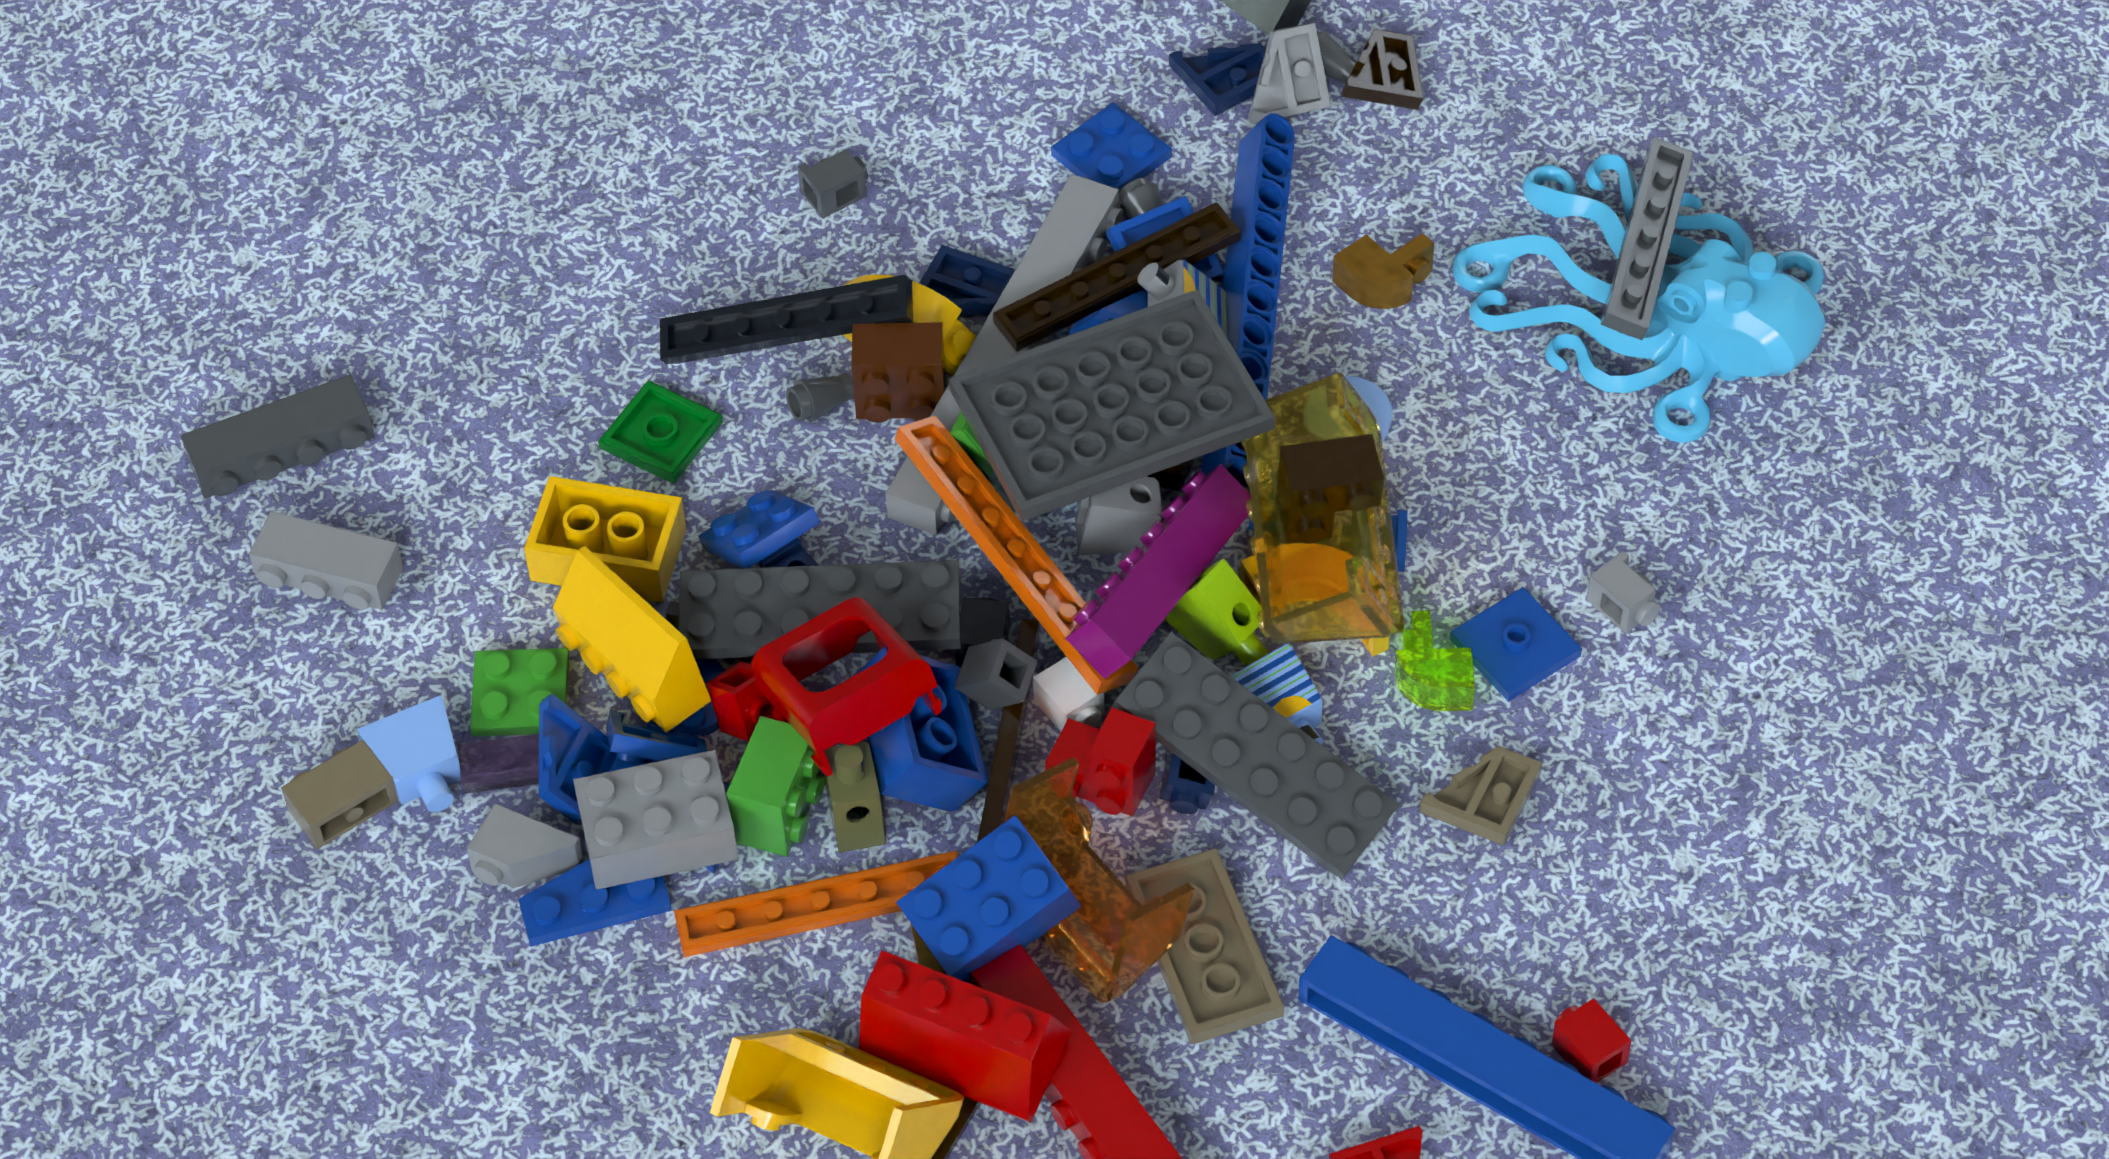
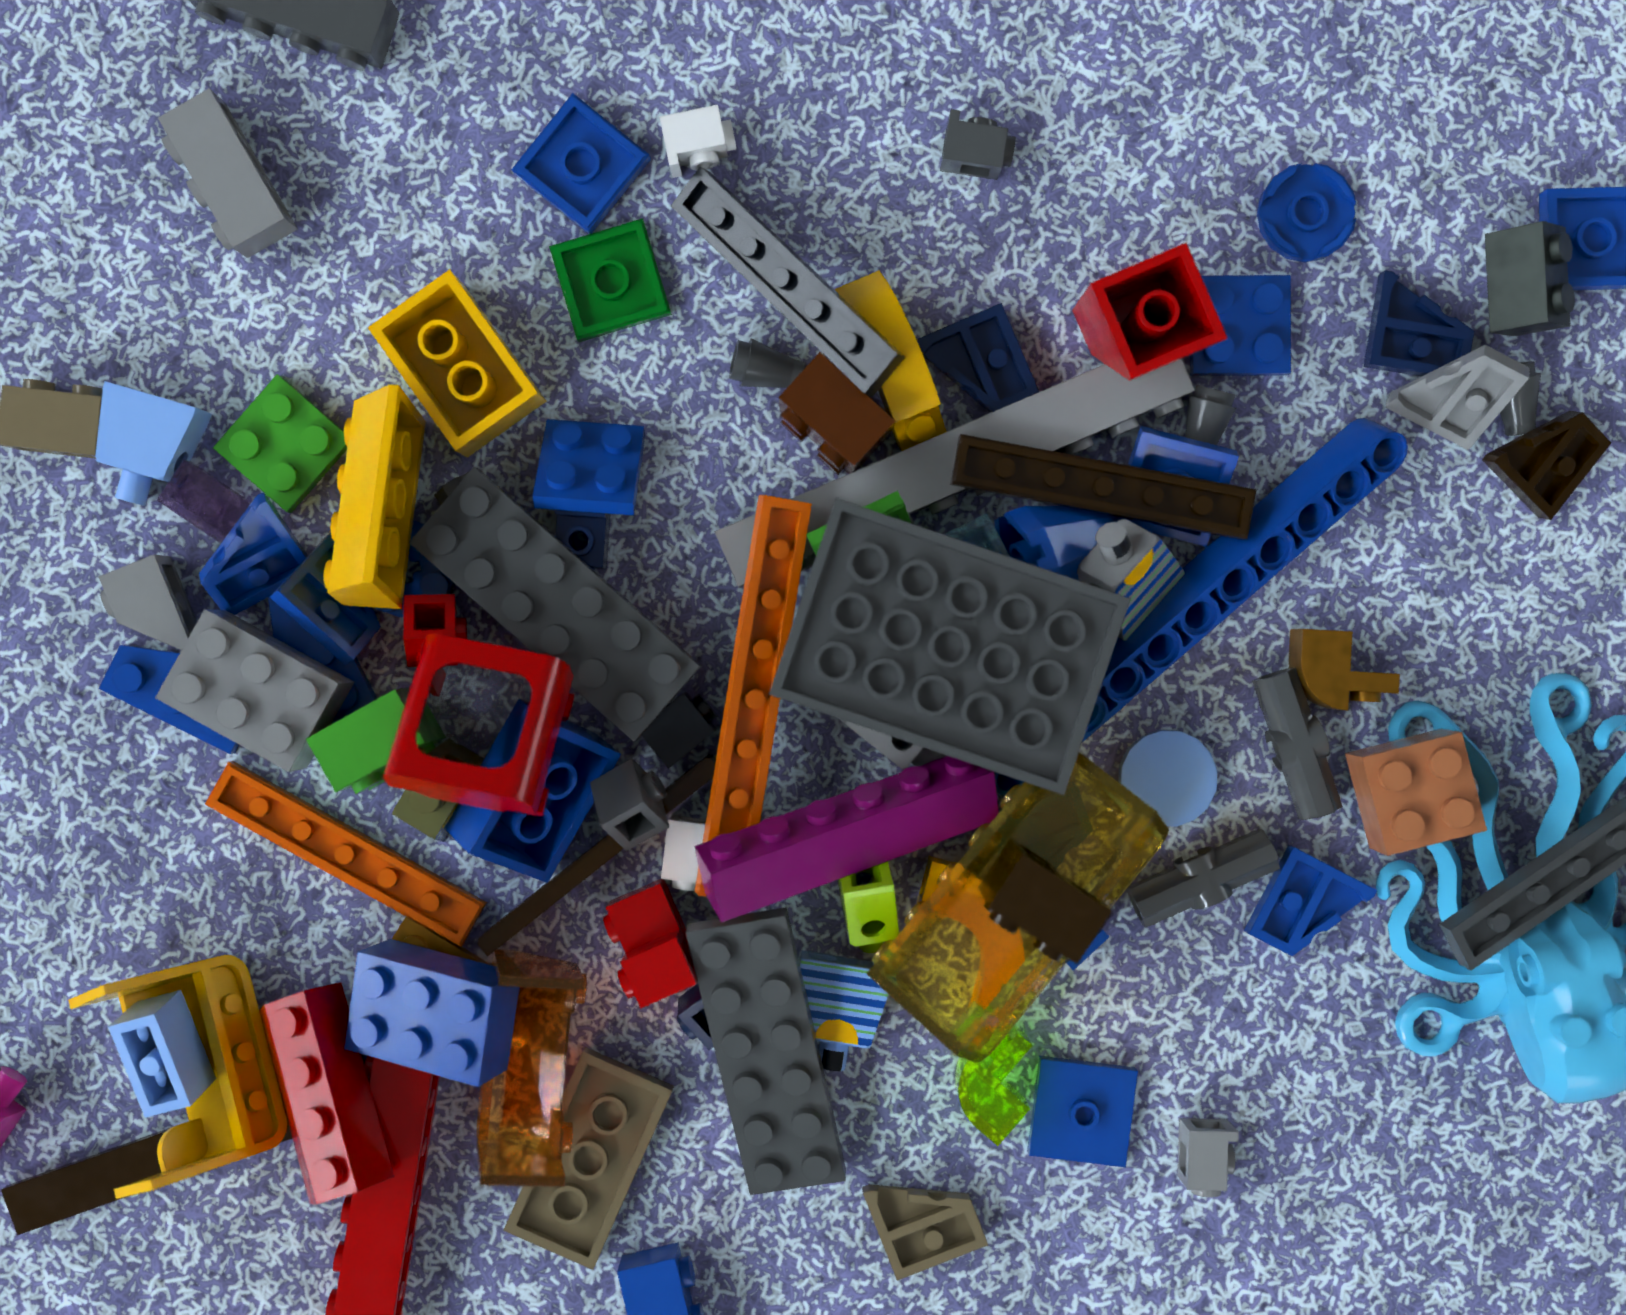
camera: 45 degrees right, 35 degrees up
(574, 381) = (581, 164): none -> blue plate
(638, 309) = (696, 138): none -> white brick
(815, 1097) = (162, 1053): none -> light blue brick
(1037, 160) = (1149, 314): none -> red slope
(1086, 79) = (1291, 221): none -> blue tile
(1407, 328) = (1298, 744): none -> dark grey piece
(1434, 445) = (1203, 878): none -> dark grey piece
(1503, 277) = (1416, 791): none -> nougat brick
(1515, 408) = (1303, 901): none -> blue wing

